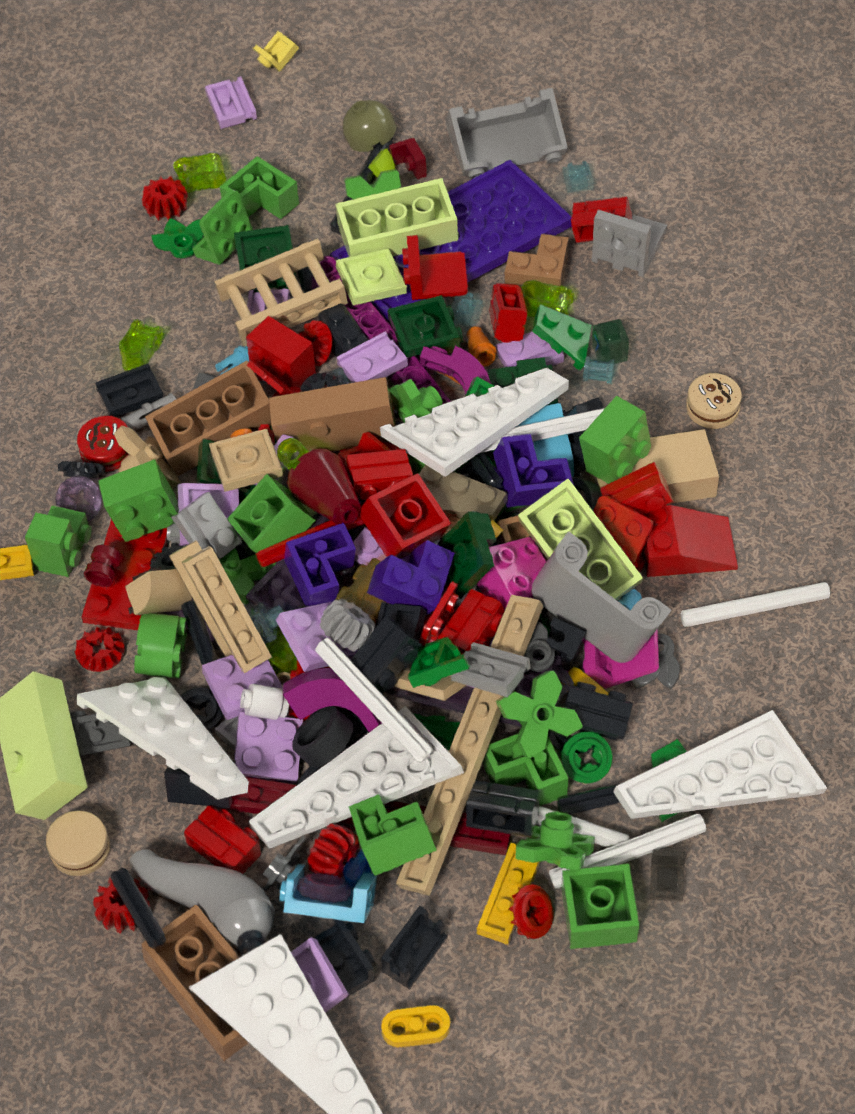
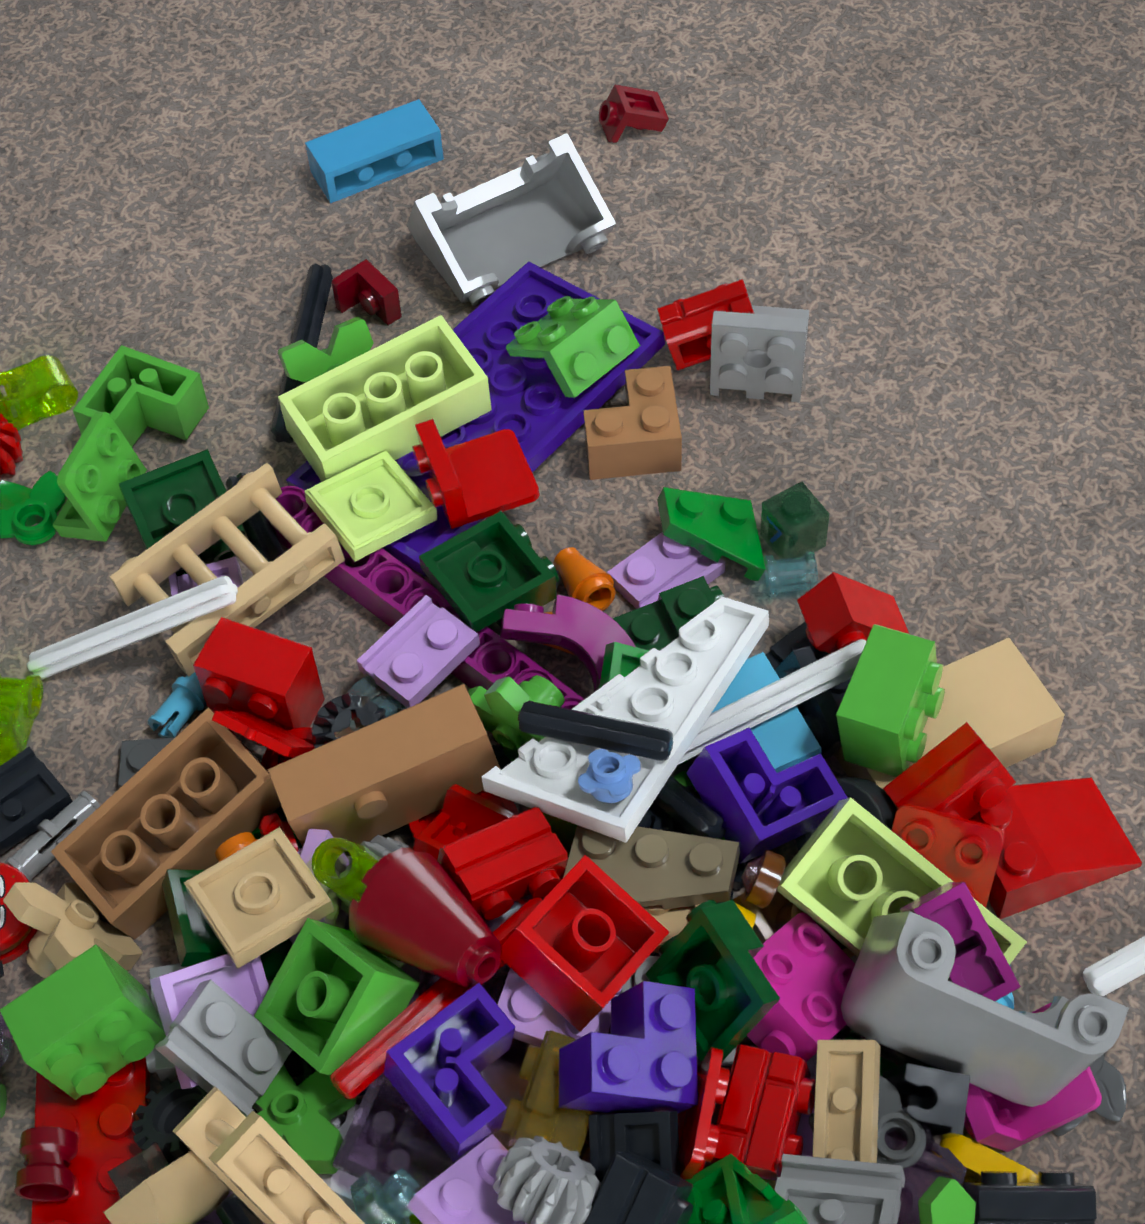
camera: 15 degrees left, 0 degrees up
(220, 312) = (133, 627): none -> white axle
(230, 102) = (50, 267): lavender plate -> none
(276, 52) = (103, 171): light yellow bracket -> none
(323, 341) = (324, 635): red gear -> none
(343, 329) = (347, 610): black brick -> none
(367, 125) = (285, 256): olive cylinder -> none
(382, 162) = (327, 312): lime tile -> none
(440, 73) = (374, 150): none -> dark azure brick
(446, 440) = (609, 776): none -> medium blue plate
(448, 417) = (596, 730): none -> black axle
(467, 310) = (542, 522): clear light blue tile -> none
(507, 312) = (615, 513): red brick -> none
(510, 512) = (762, 878): none -> reddish brown tile
(518, 211) = (577, 341): none -> bright green bracket
(546, 294) = (649, 470): clear neon green piece -> none
(577, 177) = (642, 266): clear light blue tile -> none
(601, 563) = (978, 958): none -> magenta brick
(604, 81) = (631, 108): none -> dark red bracket
(615, 384) = (845, 611): none -> red brick
(713, 400) = (993, 582): tan head -> none

